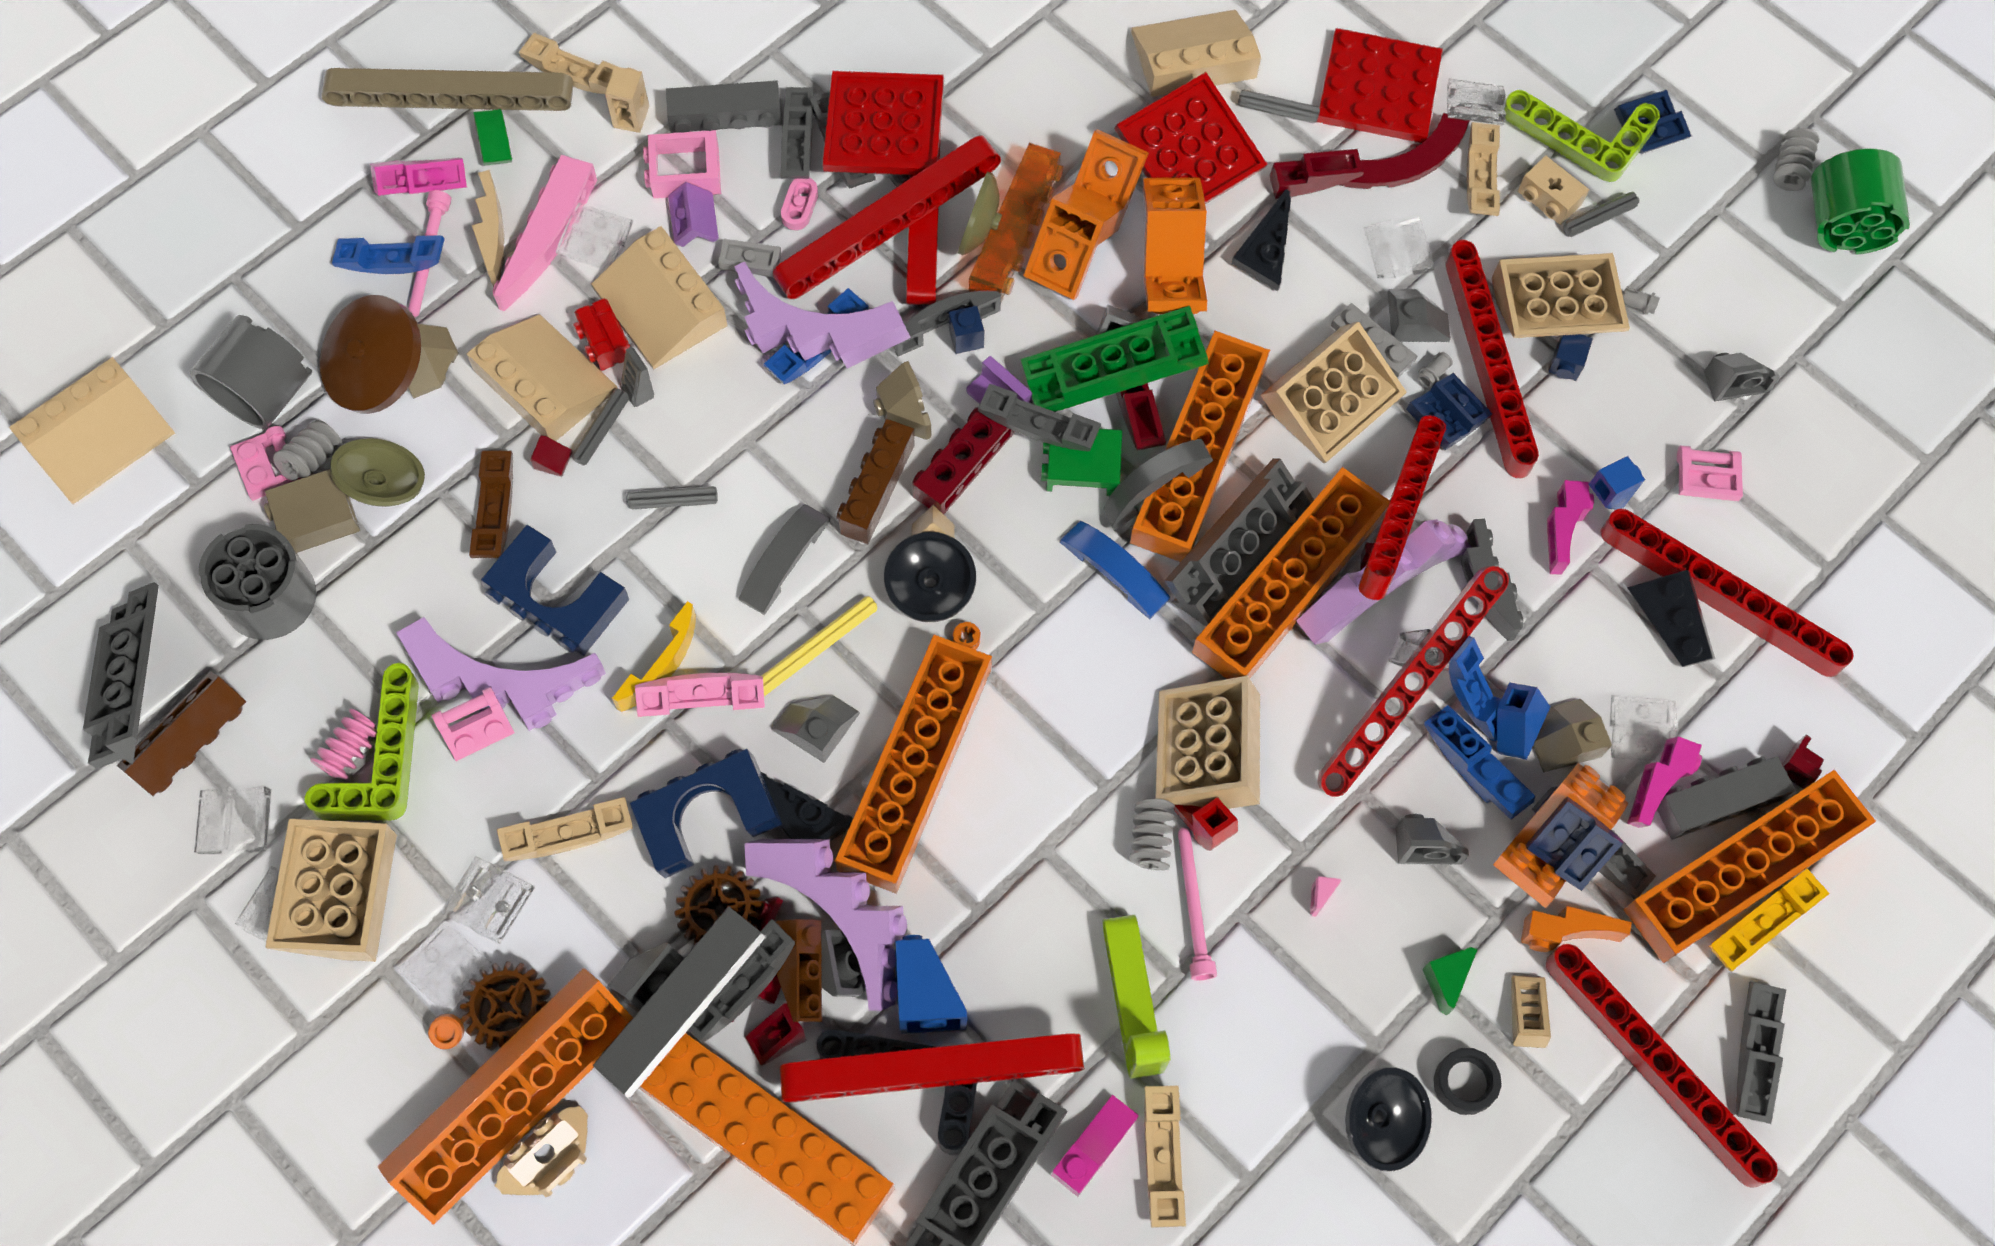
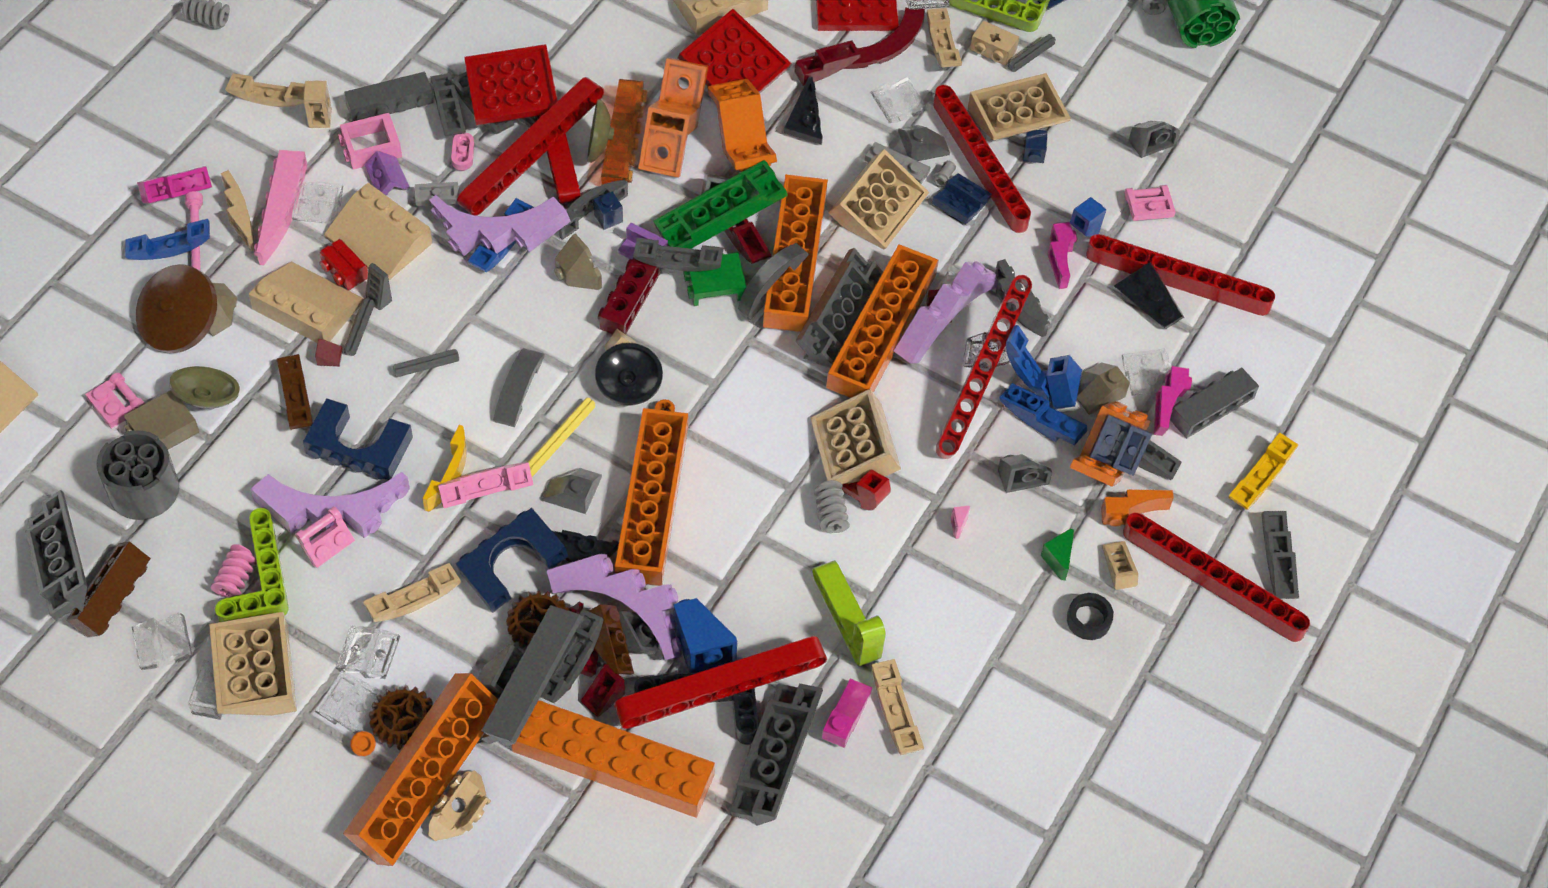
camera: 15 degrees left, 10 degrees down
(251, 372) = (91, 336): dark grey brick -> none
(307, 450) = (147, 382): light grey piece -> none
(447, 89) = (178, 123): dark tan beam -> none
(492, 137) = (222, 149): green slope -> none
(876, 481) = (572, 321): reddish brown brick -> none
(1118, 566) = (760, 342): blue slope -> none
(1202, 965) = (890, 585): bright pink piece -> none
(1279, 106) = (786, 24): dark grey axle -> none
(1400, 1122) = (1043, 647): black dish -> none
(1402, 508) = (947, 258): red beam -> none
(1640, 300) = (1074, 102): light grey pin -> none
(1748, 866) = (1240, 440): orange brick -> none
(1803, 764) = (1260, 371): dark red panel -> none

